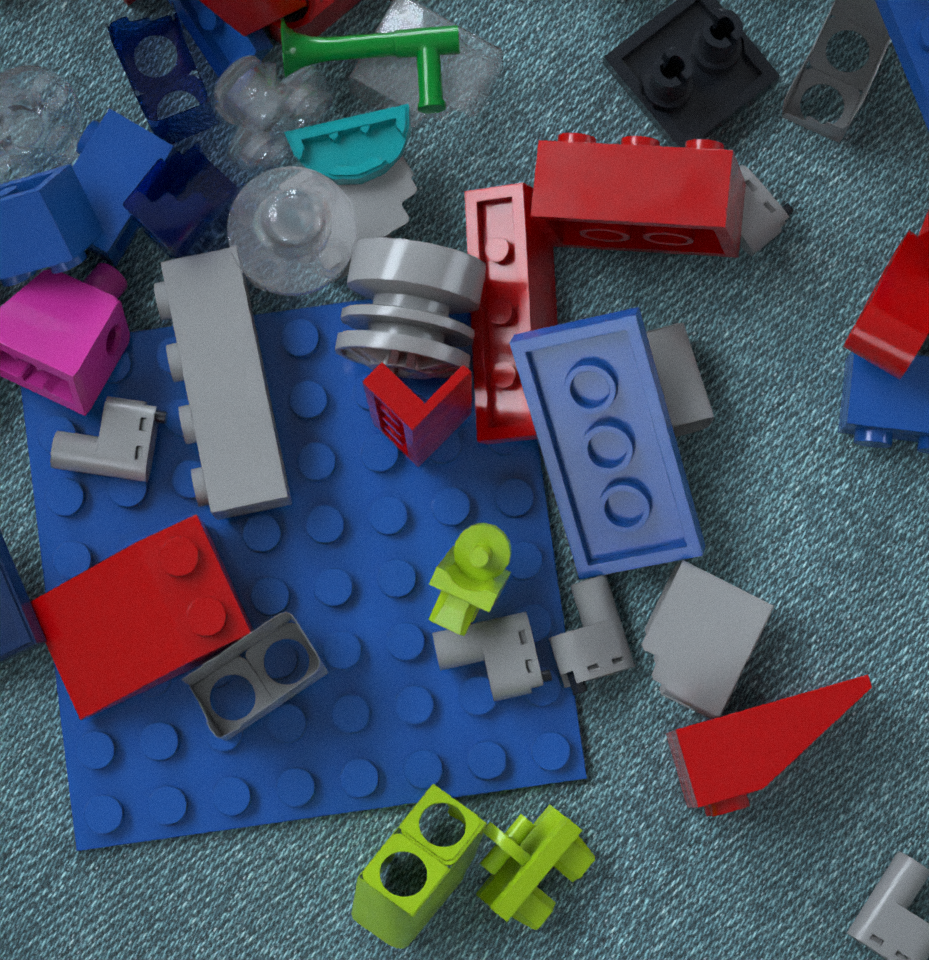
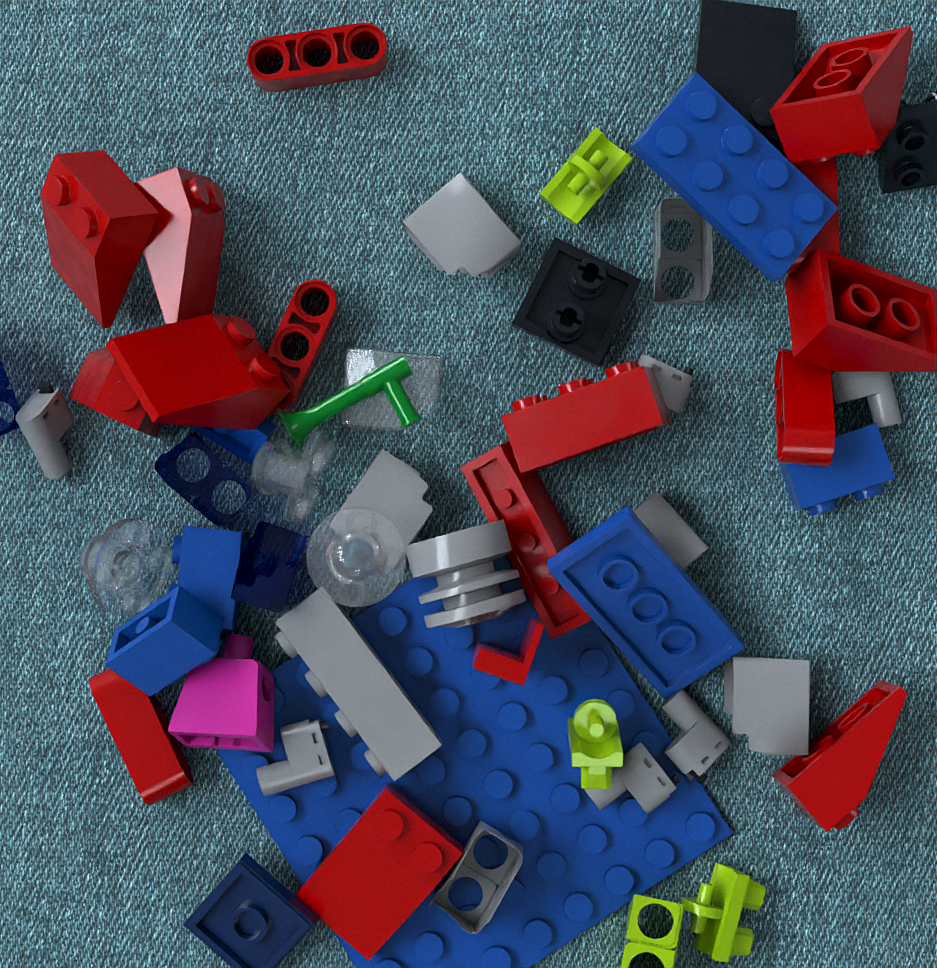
camera: 30 degrees left, 5 degrees up
(353, 147) = (370, 475): teal tile -> none

